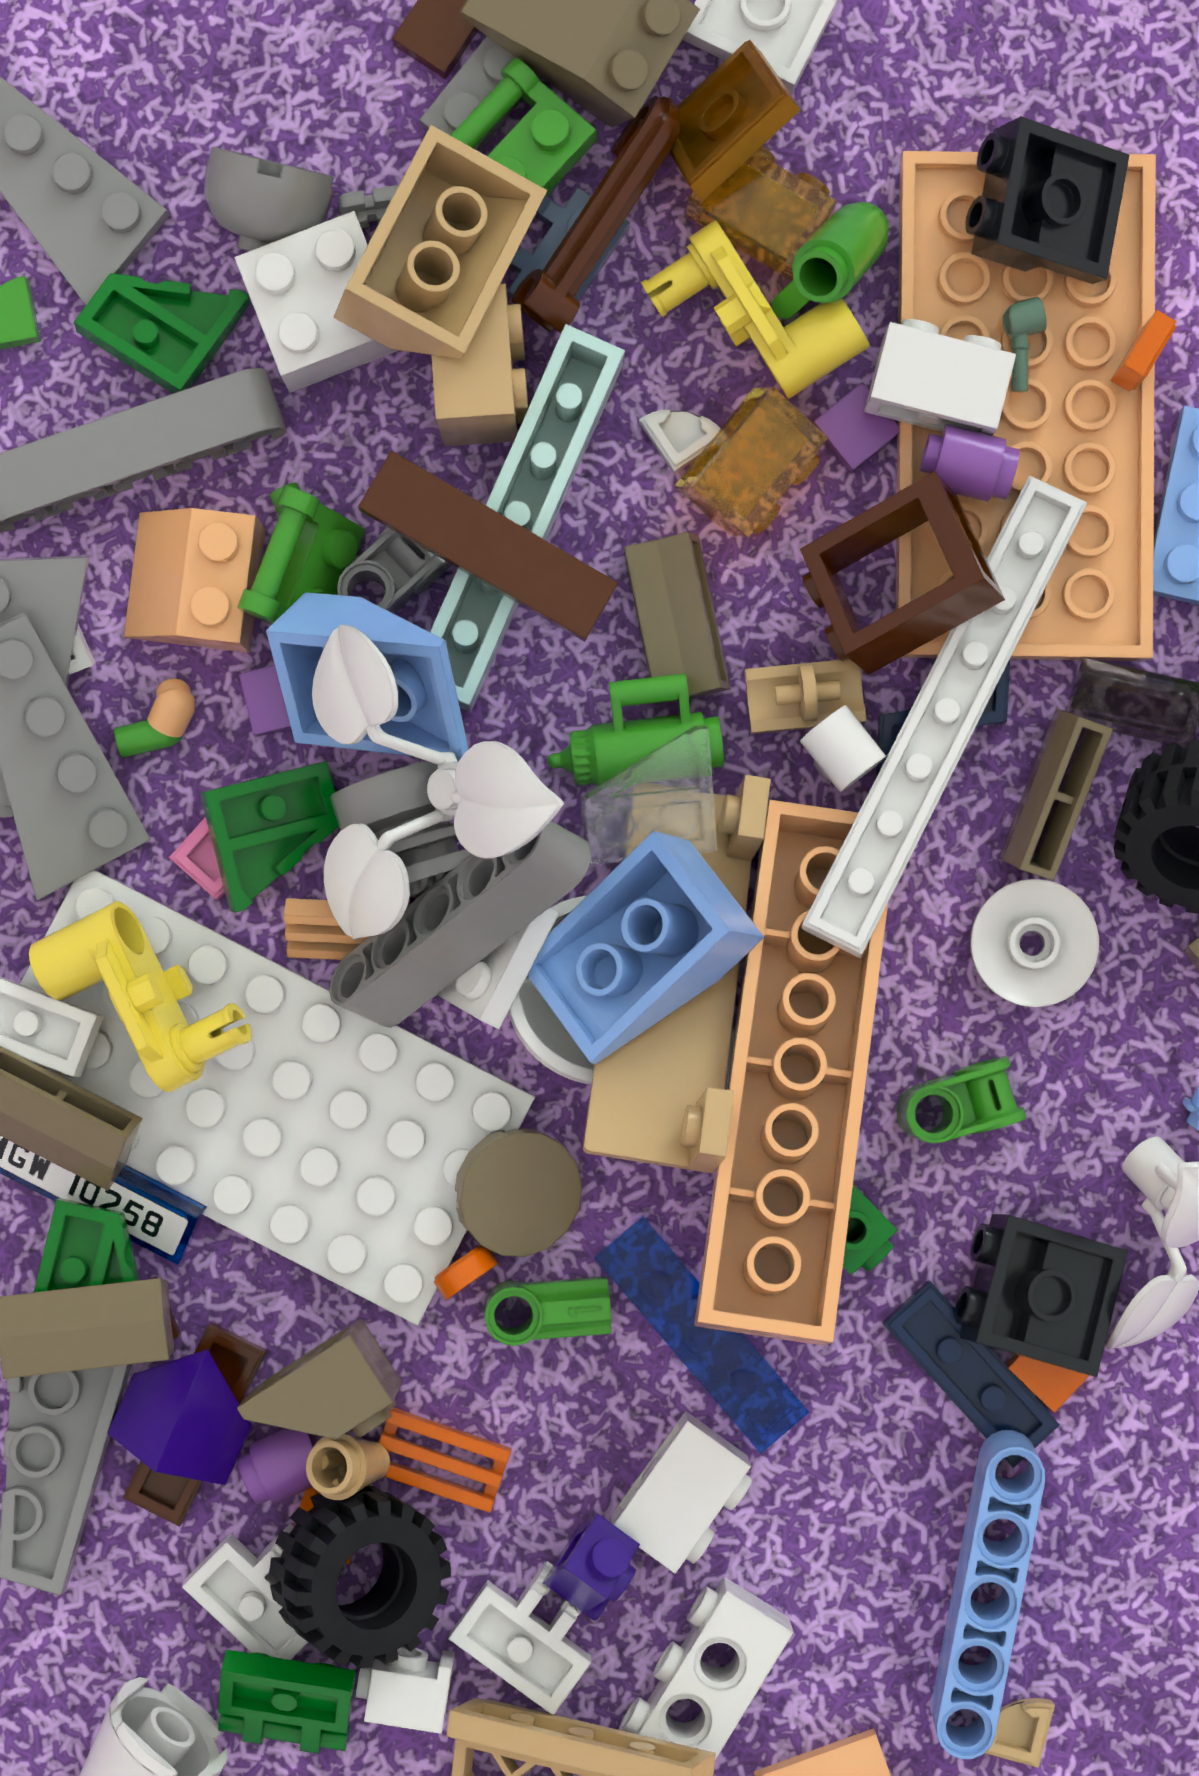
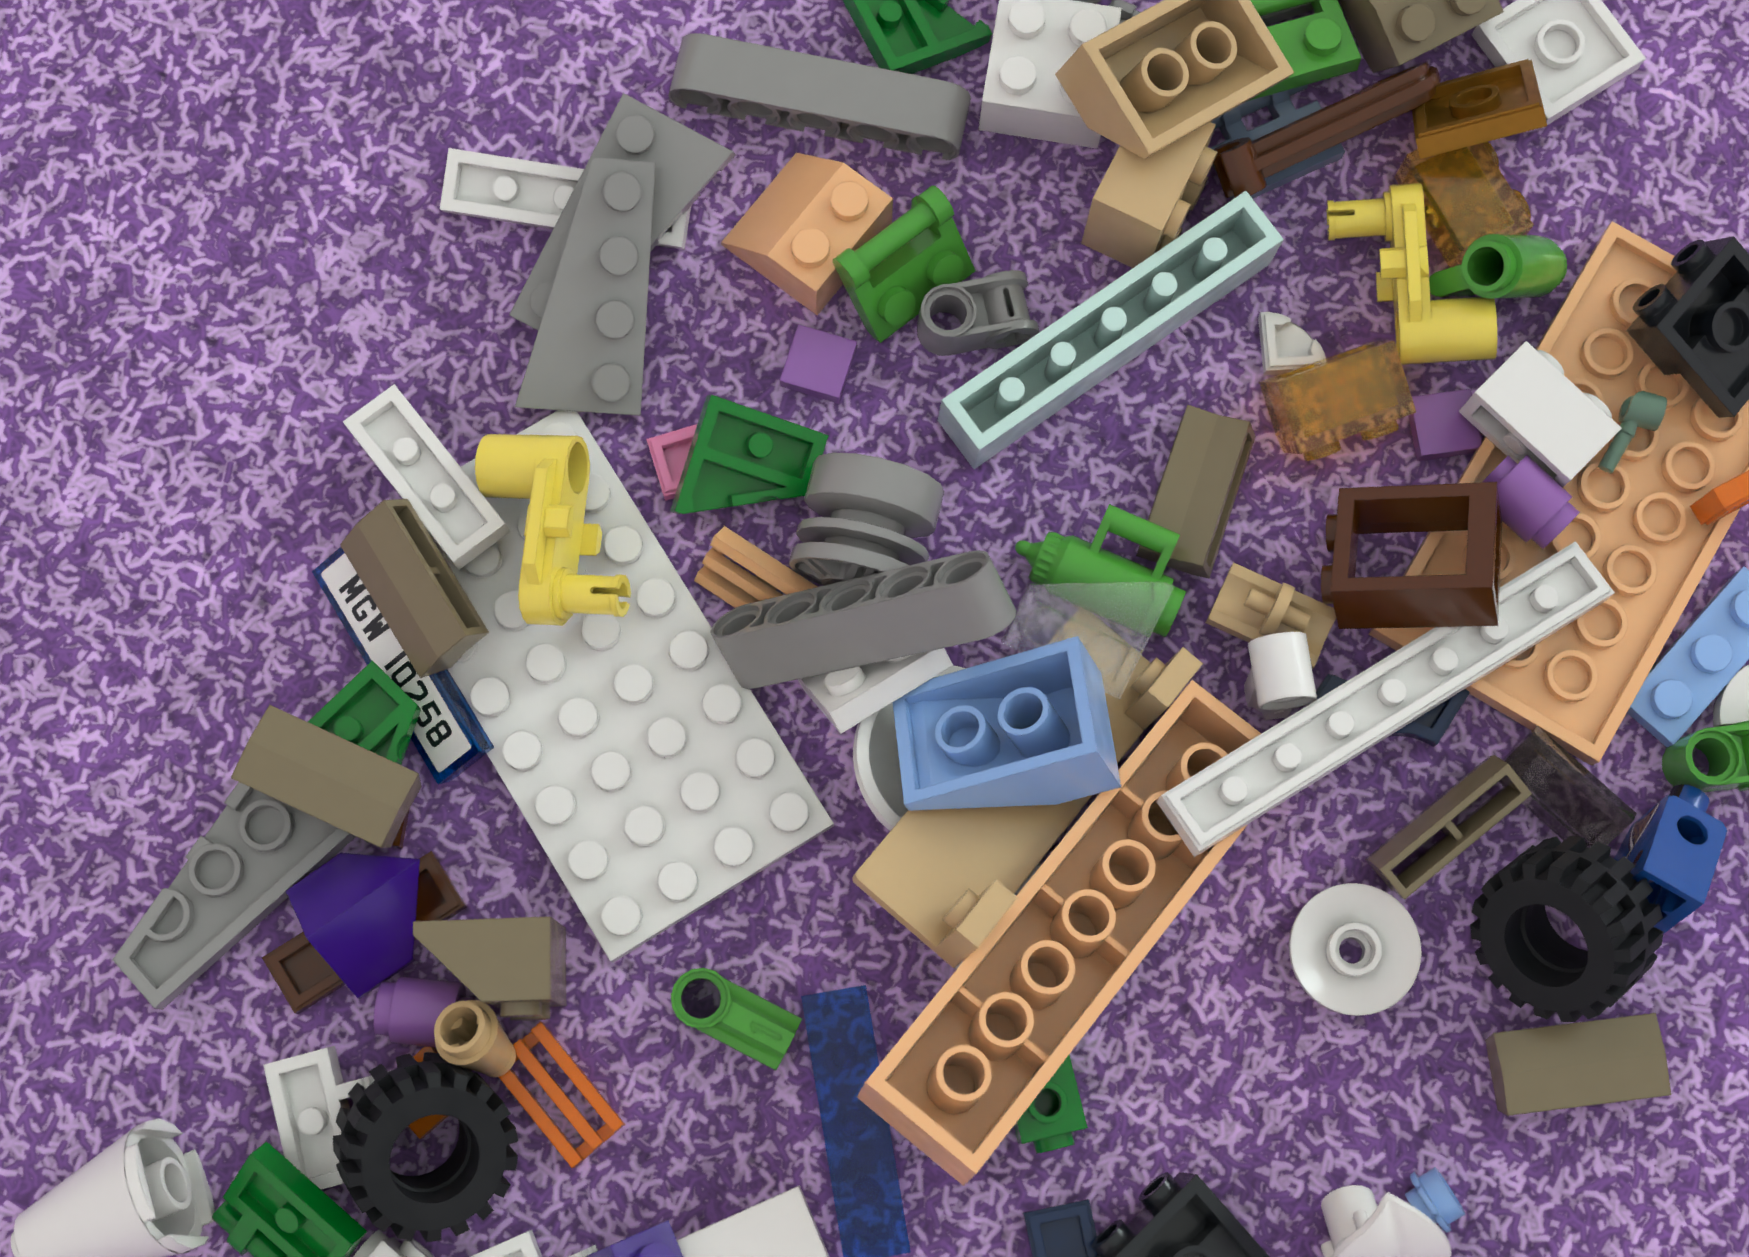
camera: 30 degrees right, 10 degrees down
(164, 724) = (711, 329): arm -> none
(419, 660) = (905, 377): light blue slope -> none
(465, 1271) = (681, 938): orange tile -> none
(487, 546) = (1074, 329): reddish brown tile -> none
(488, 792) = (947, 512): white plant -> none
(518, 1192) = (769, 895): dark tan tile -> none
(972, 1101) = (1220, 1054): bright green piece -> none

